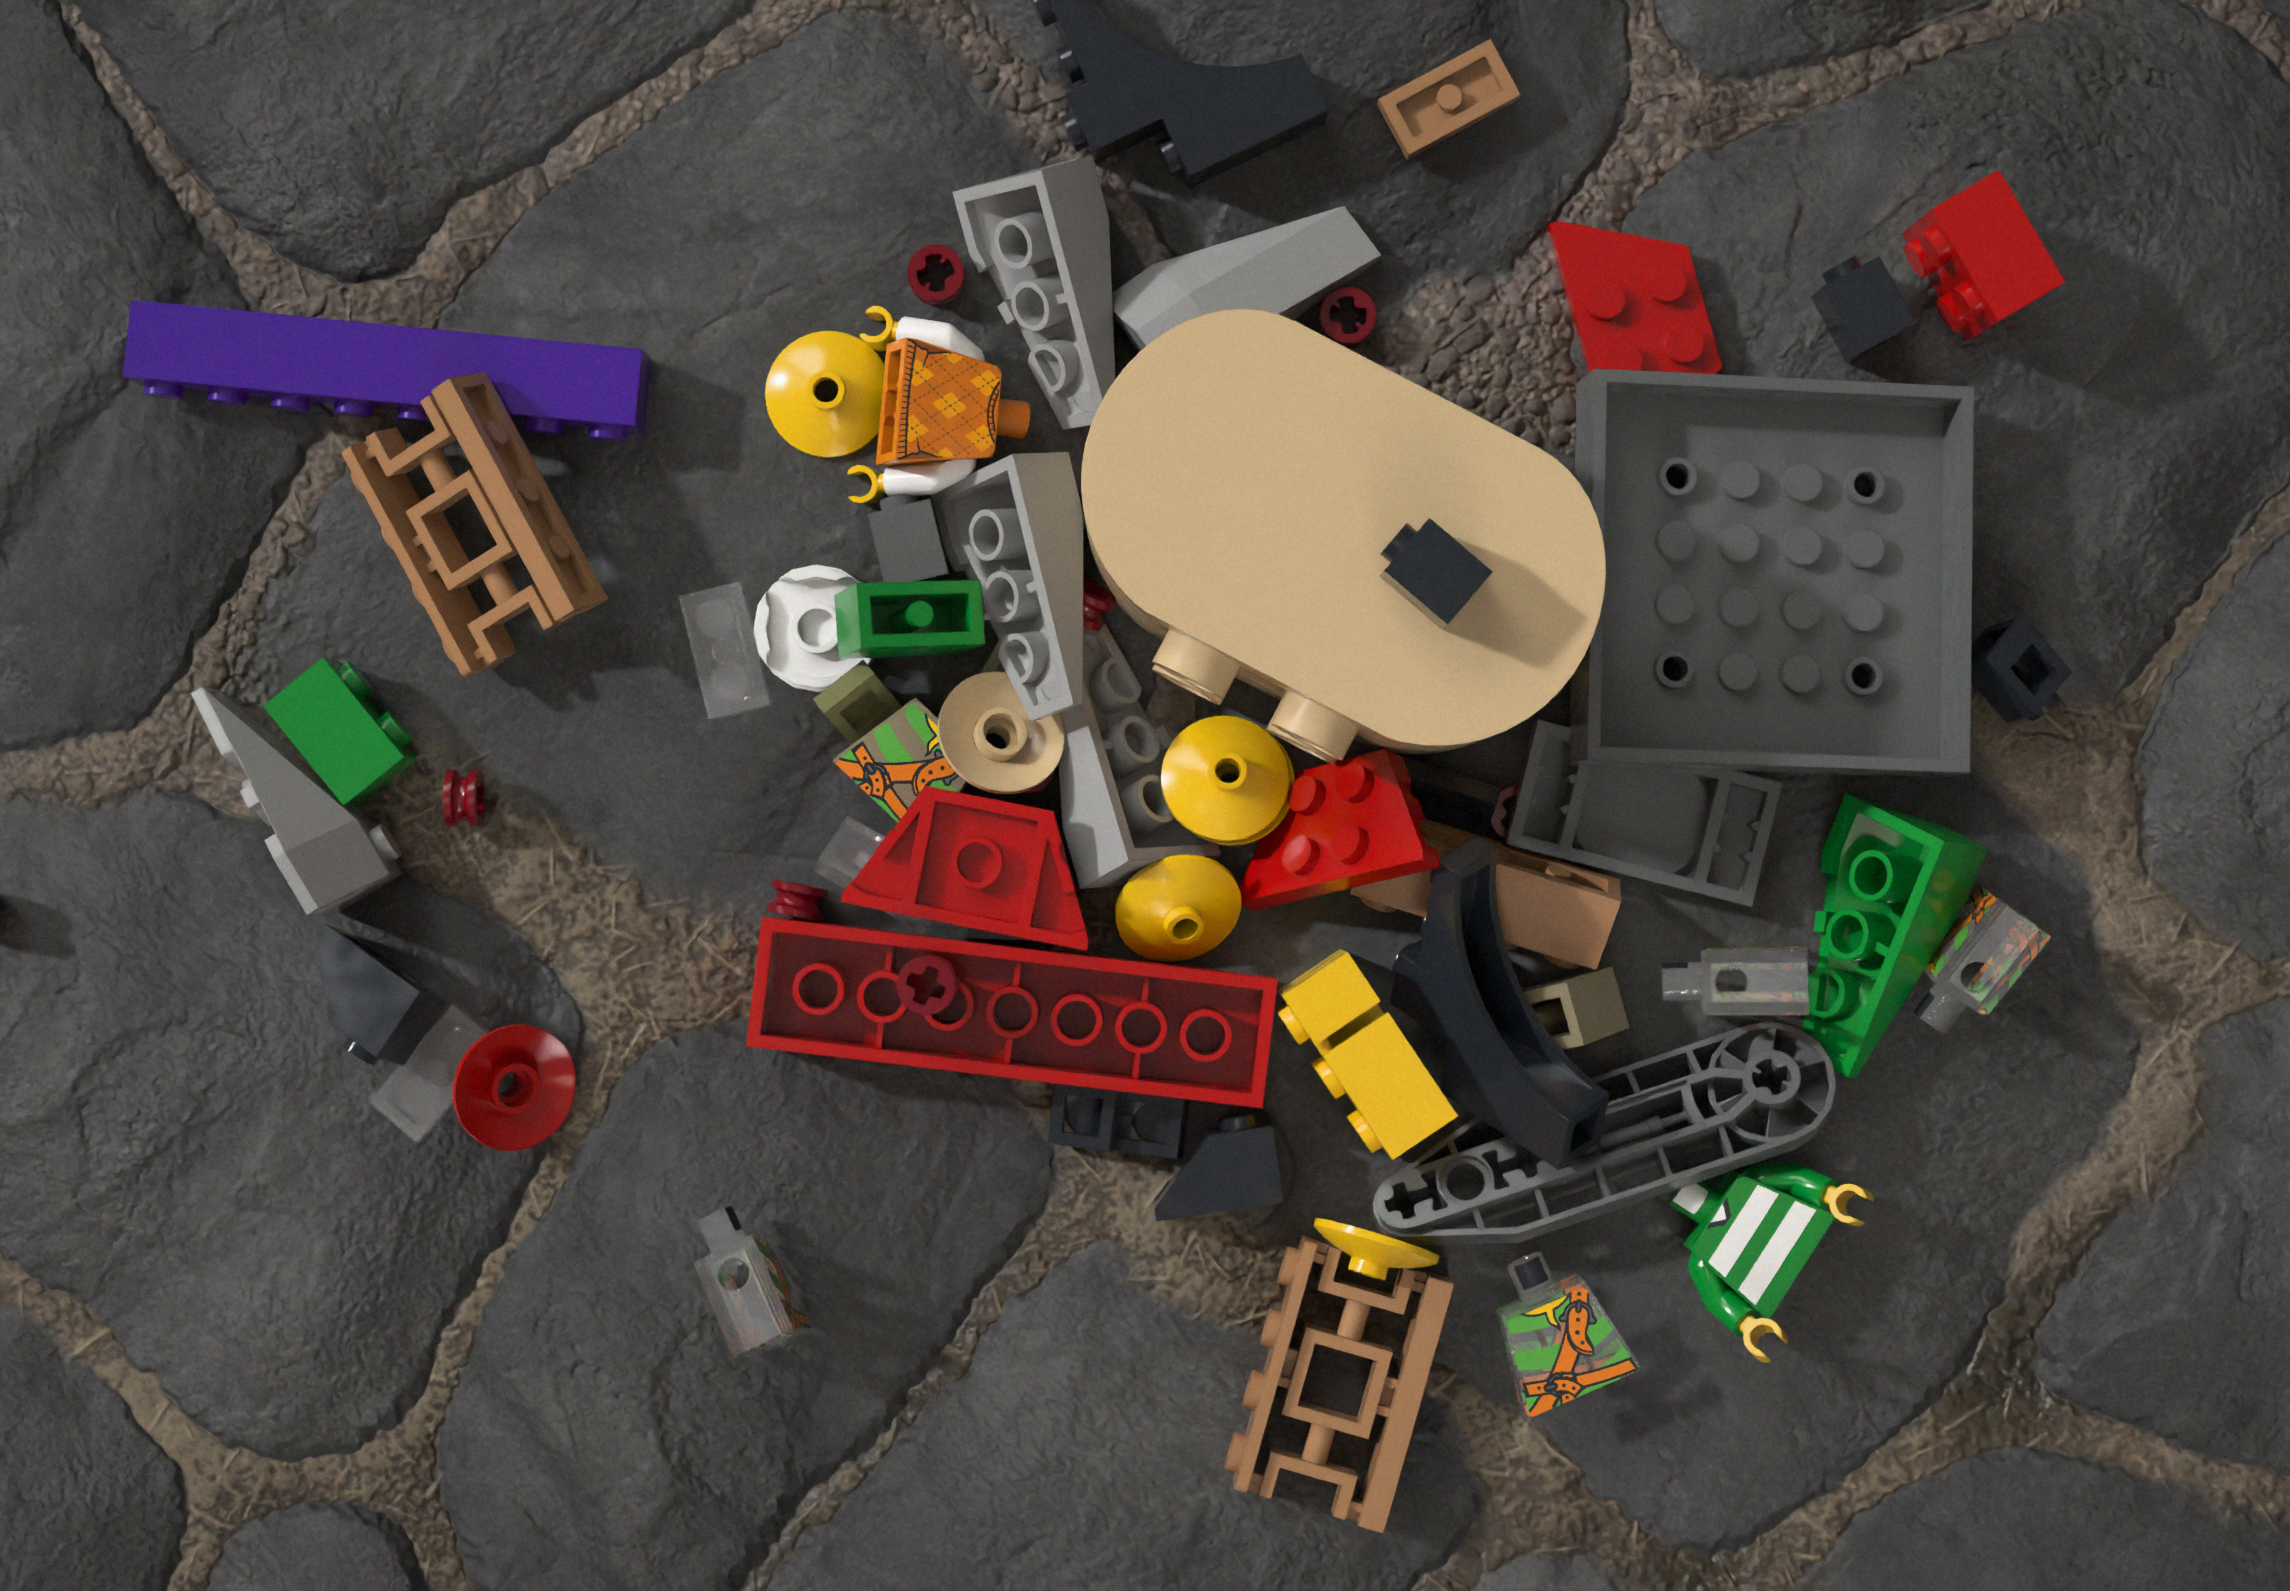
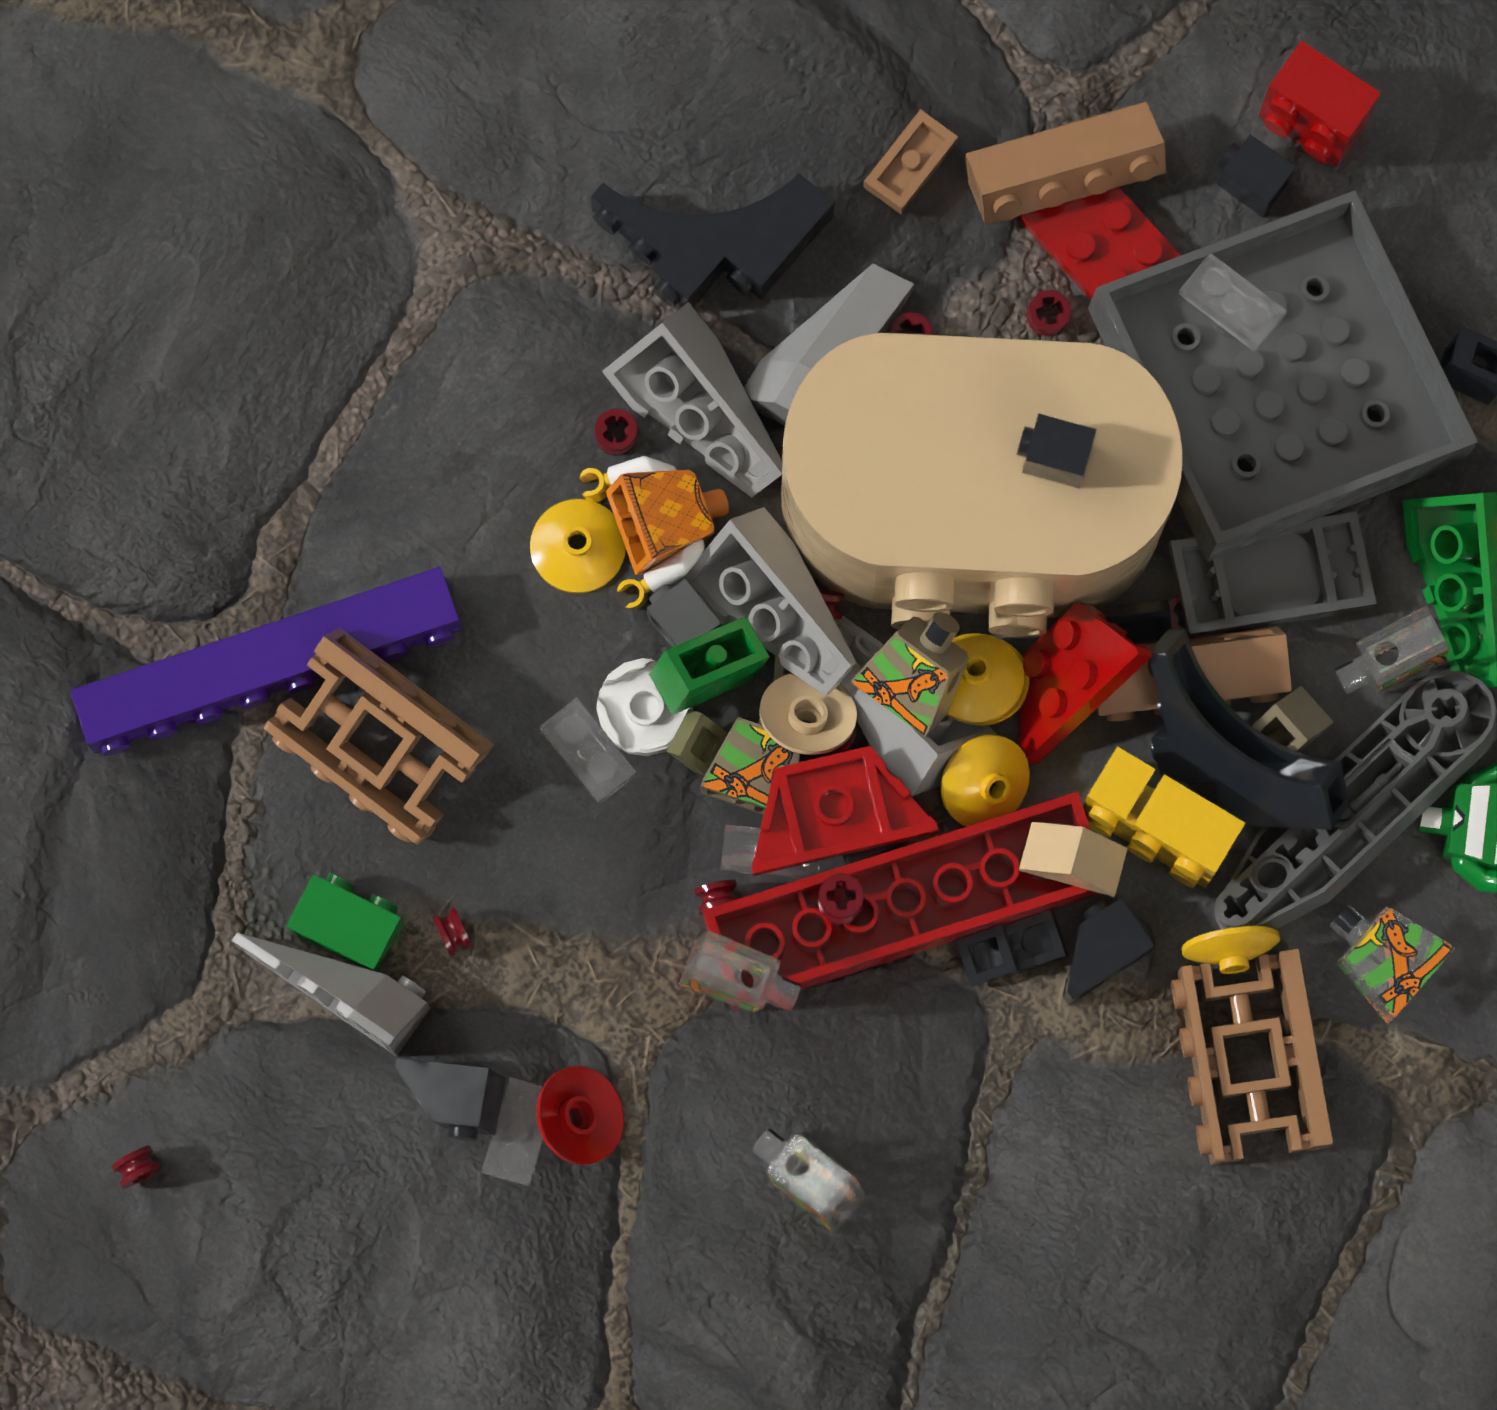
camera: 25 degrees left, 10 degrees down
(741, 1000) = (716, 972): none -> clear torso
(1149, 747) = (917, 672): none -> torso
(1232, 1060) = (1073, 857): none -> tan slope
(1516, 350) = (1035, 306): none -> dark red bush
(1637, 189) = (1066, 163): none -> medium nougat brick
(1752, 463) = (1232, 302): none -> clear plate

